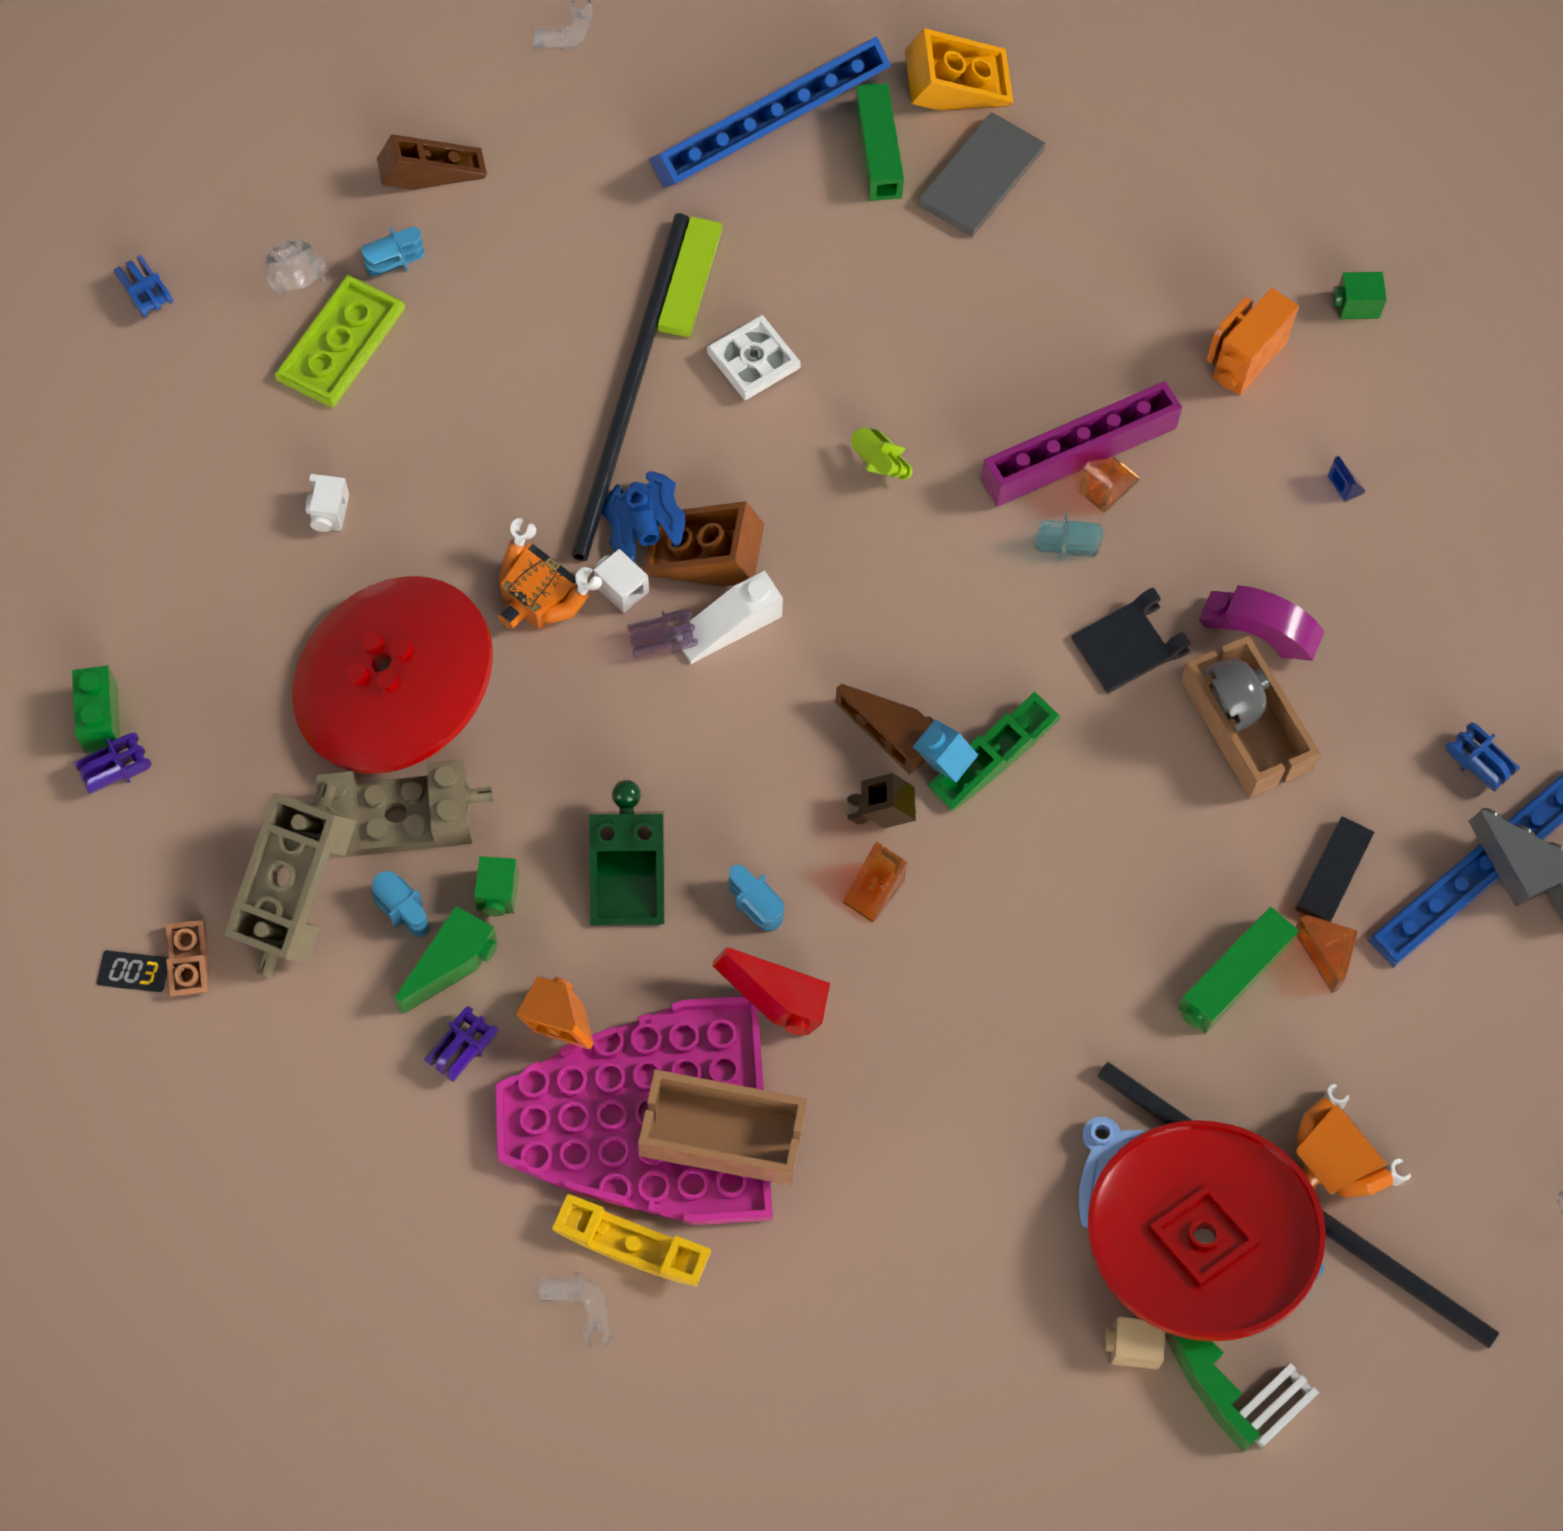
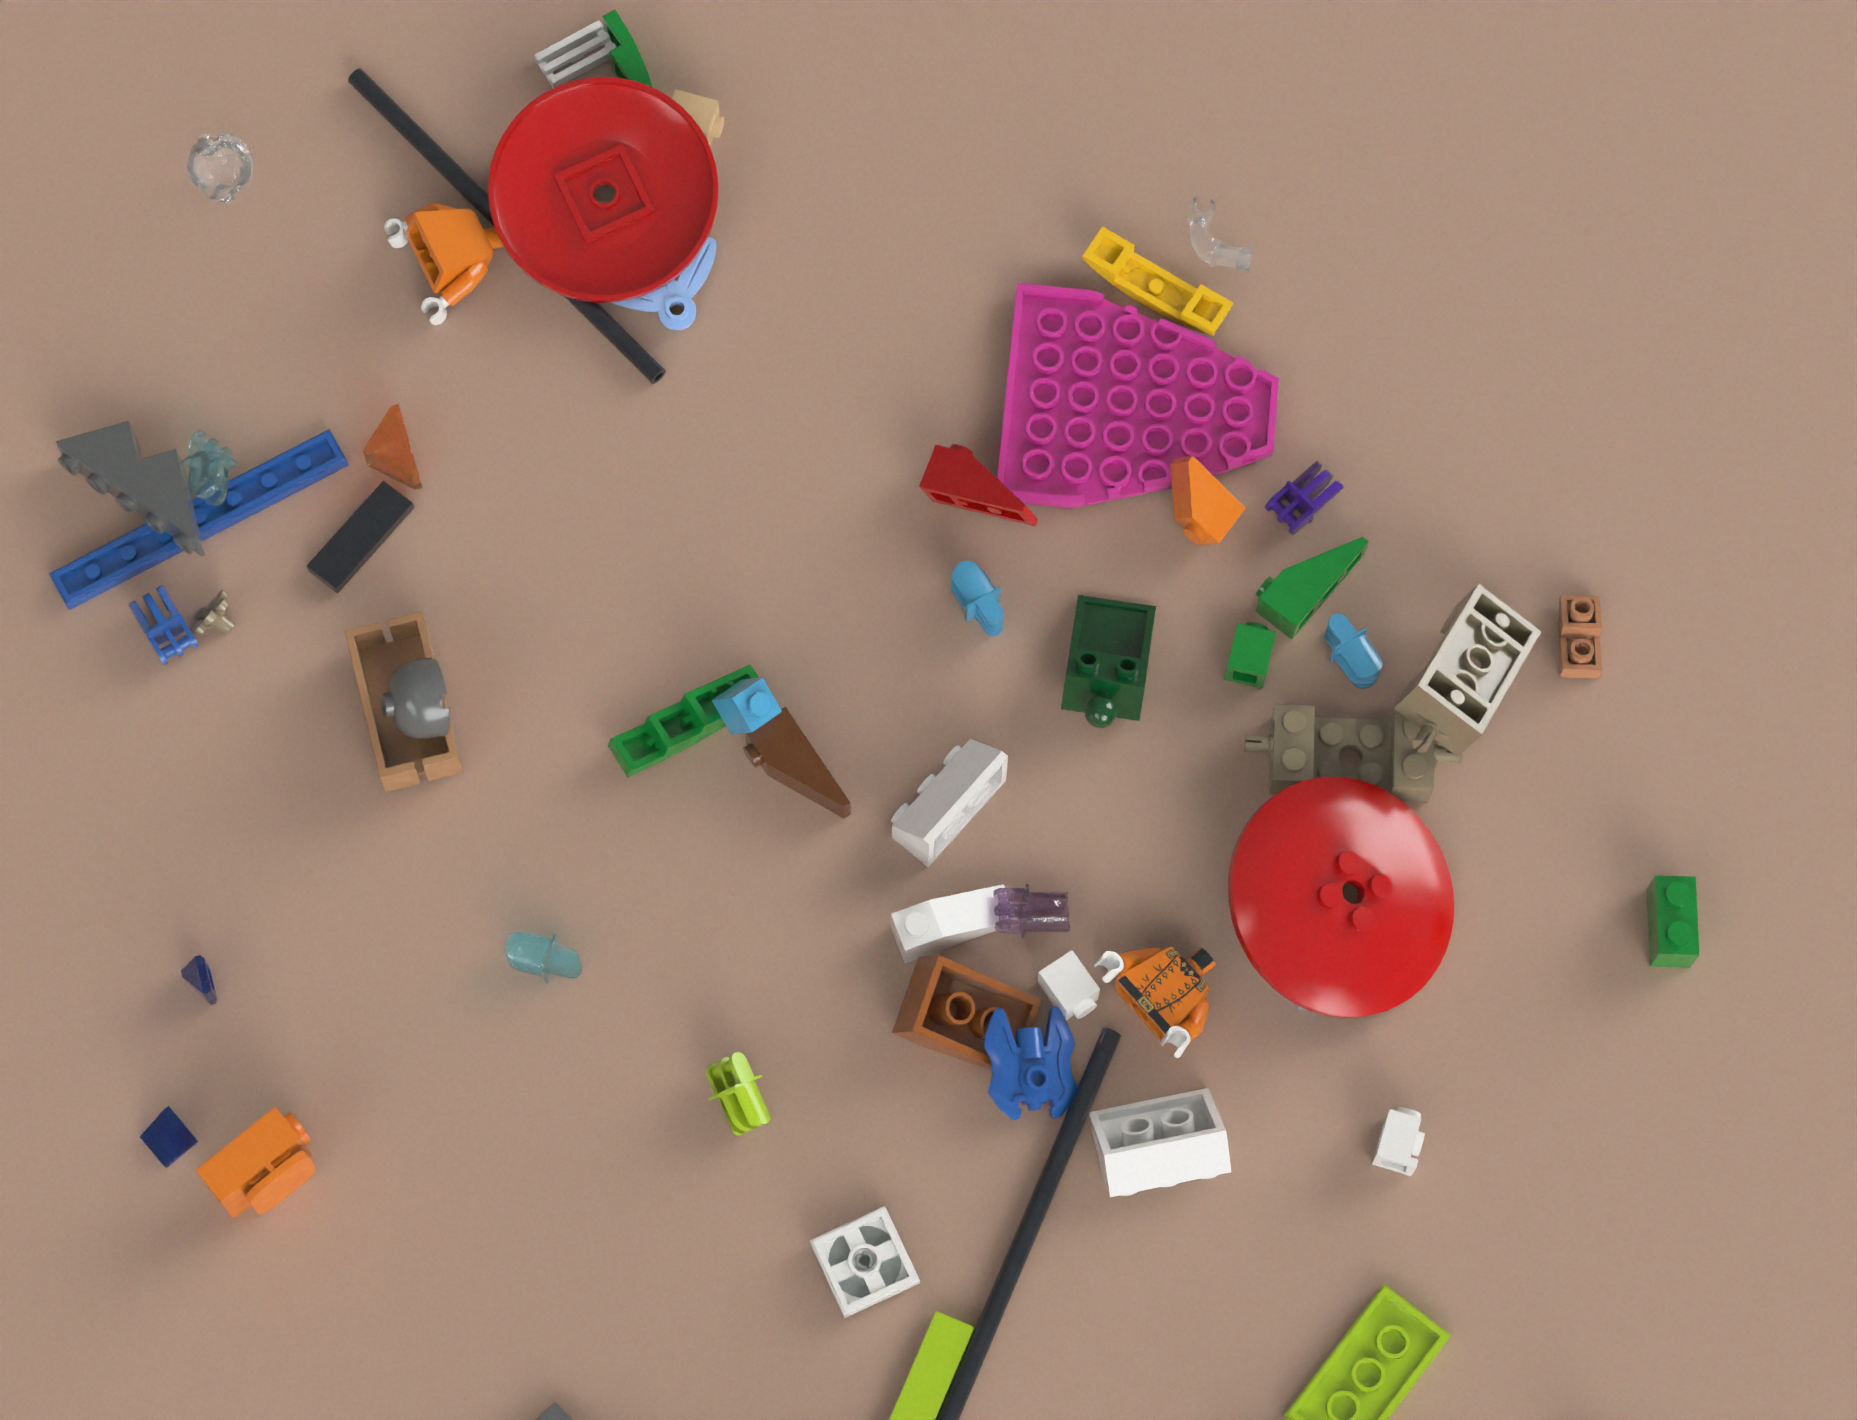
camera: 170 degrees left, 5 degrees up
(106, 766) = (1653, 858): dark purple arm -> none
(133, 971) = (1637, 638): black sticker -> none
(528, 475) = (1160, 1142): none -> white slope
(723, 1127) = (1053, 349): medium nougat piece -> none
(749, 707) = (949, 800): none -> white slope
(876, 882) = (848, 594): clear orange slope -> none
(885, 801) = (822, 672): dark brown brick -> none
(1079, 442) = (499, 1066): magenta brick -> none
(1106, 482) = (476, 1023): clear orange slope -> none
(1127, 643) = (510, 824): black flag -> none
(1237, 970) = (495, 444): green brick -> none
(1266, 616) = (356, 812): magenta arch -> none
(1329, 369) = (168, 1137): none -> clear blue slope
(1360, 295) = (101, 1223): green brick -> none
(1442, 773) = (214, 616): none -> dark tan plant
(1493, 891) = (208, 468): none -> clear light blue arm

